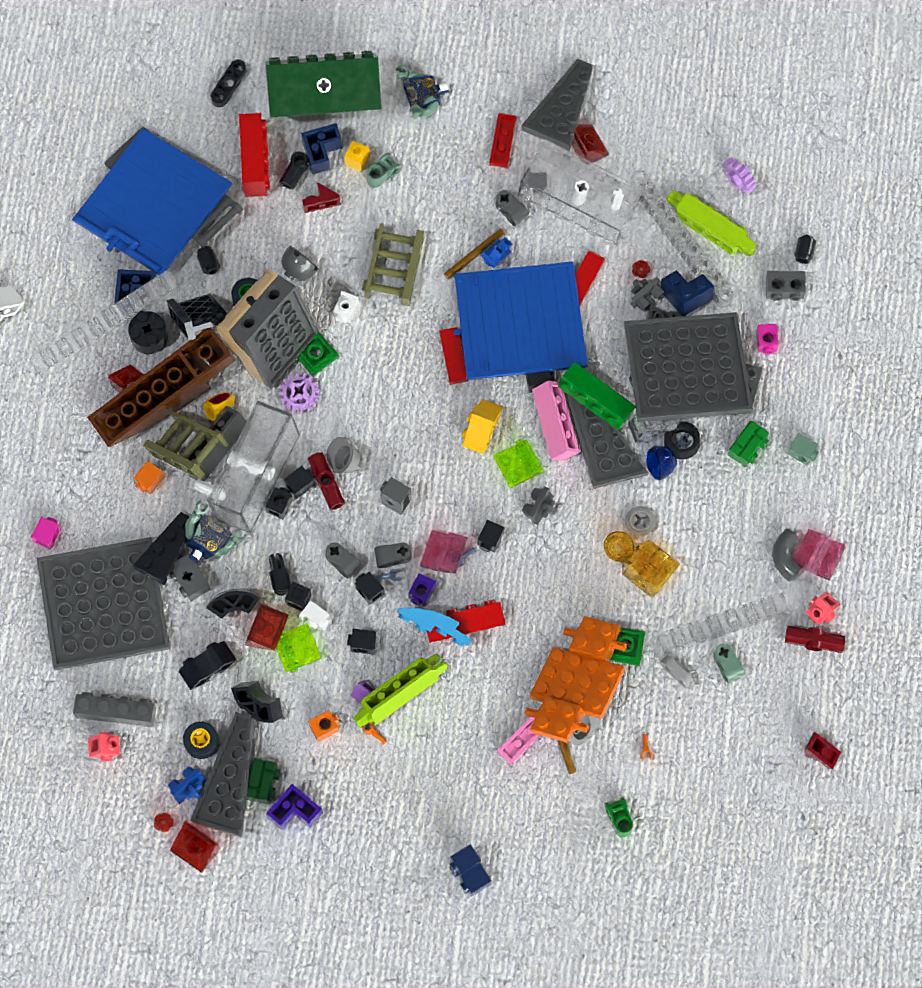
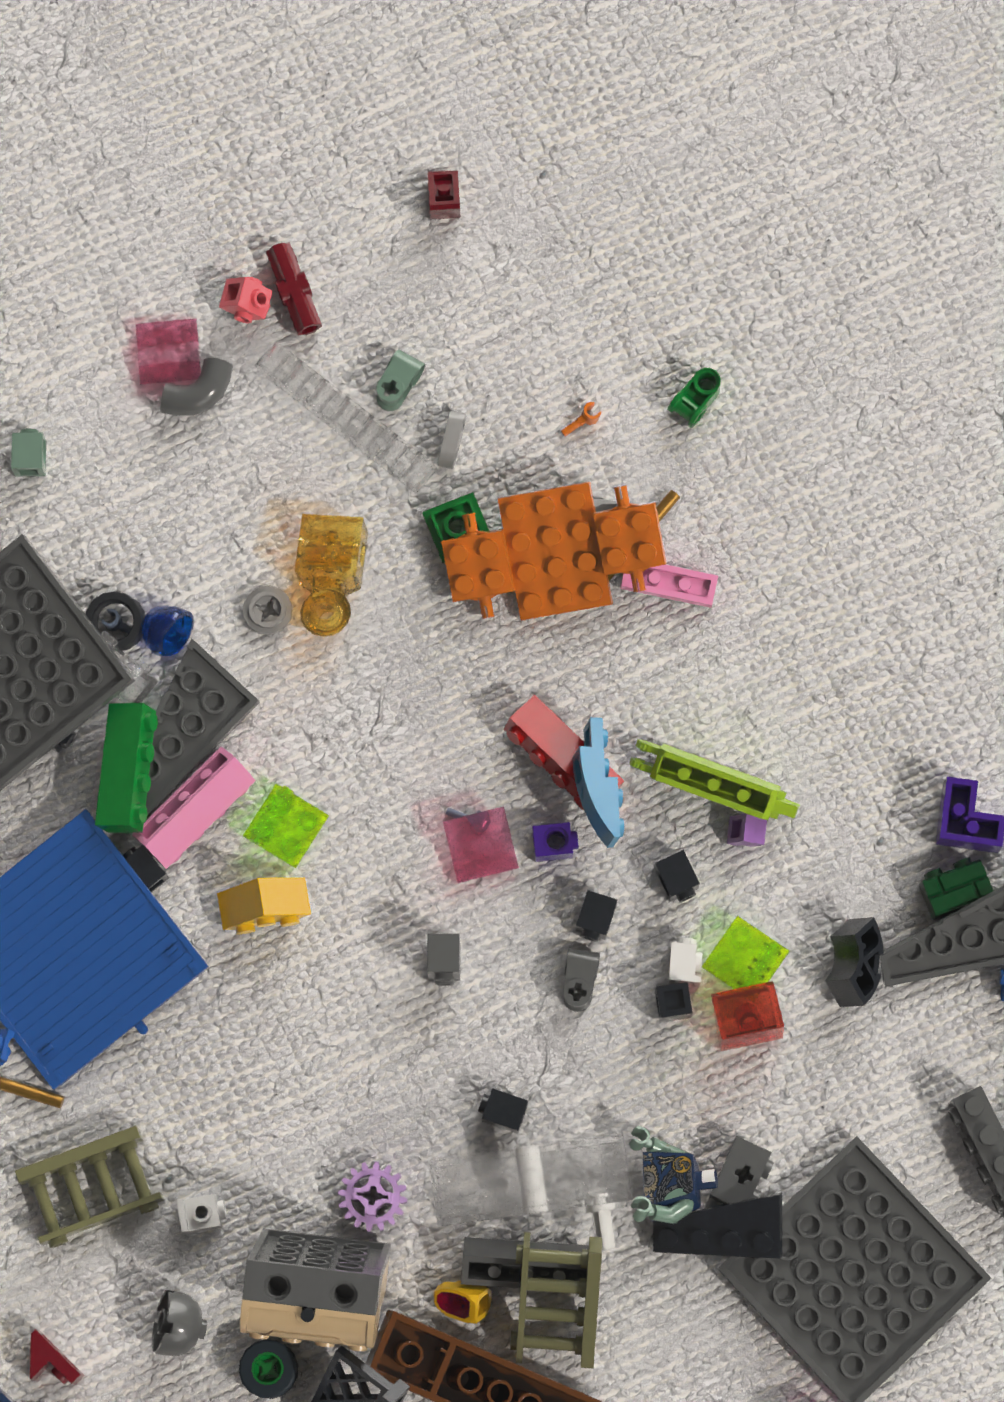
camera: 120 degrees left, 5 degrees up
(148, 478) = (634, 1331): orange brick -> none
(197, 734) = (961, 999): black wheel -> none
(212, 661) = (848, 1067): black brick -> none
(233, 600) = (737, 1088): black brick -> none
(279, 510) = (562, 1109): black brick -> none
(279, 576) = (656, 1052): black arm -> none
(318, 363) = (289, 1195): green piece -> none
(320, 733) = (831, 867): orange brick -> none
(330, 491) = (467, 1090): dark red piece -> none
(343, 456) = (430, 1072): light grey piece -> none
(372, 731) = (790, 783): orange hand -> none
(391, 554) = (533, 918): dark grey piece -> none
(391, 575) = (559, 898): sand blue hand -> none
(453, 356) = (179, 1014): red tile -> none
(468, 868) = (895, 540): dark blue brick -> none
(490, 536) = (419, 794): black brick -> none
(542, 506) = (316, 758): dark grey hips -> none
(748, 443) = (65, 529): green brick -> none

